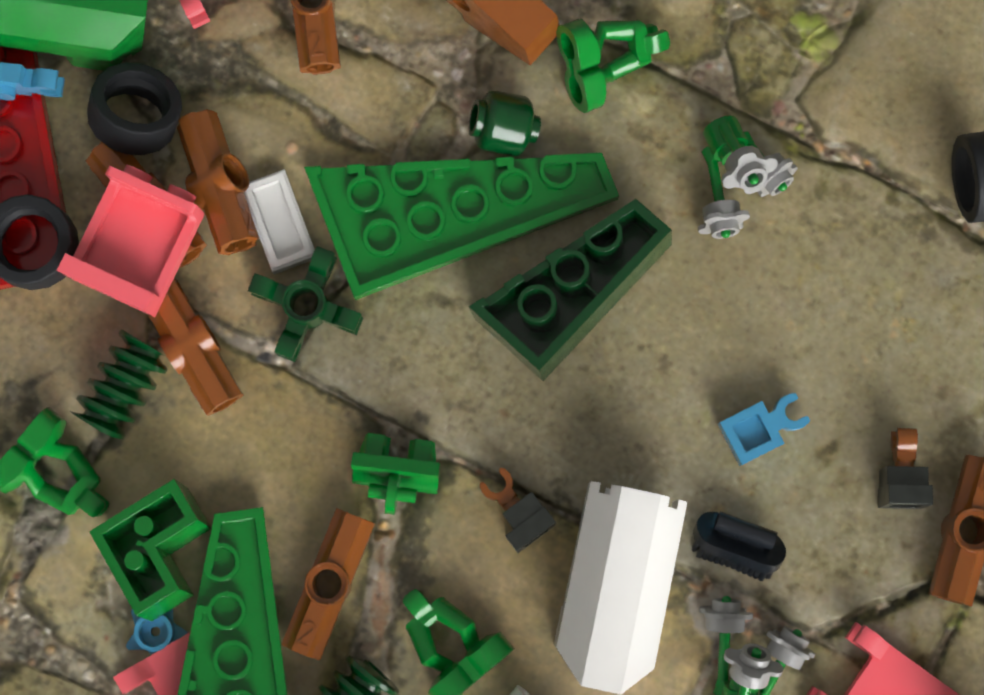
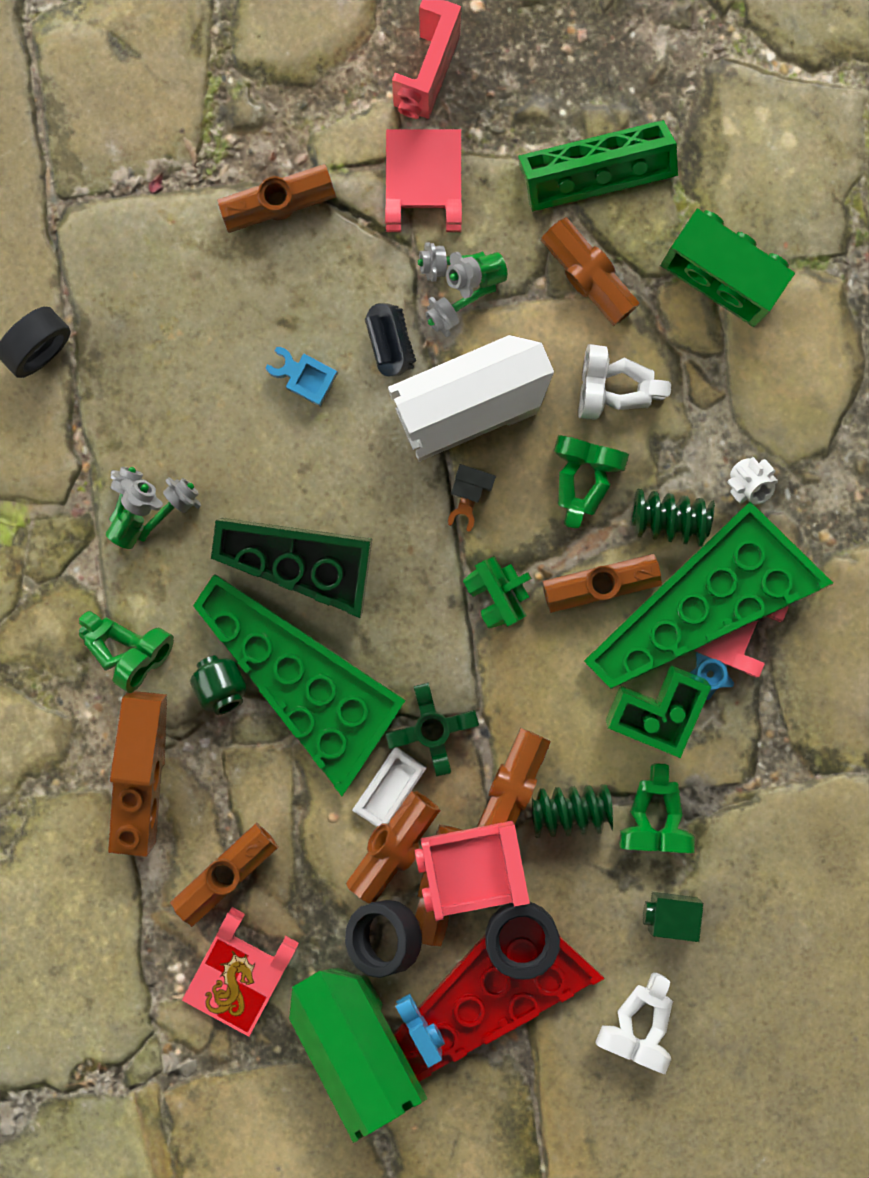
camera: 125 degrees left, 5 degrees up
(904, 484) = (274, 259): pearl dark grey piece -> none

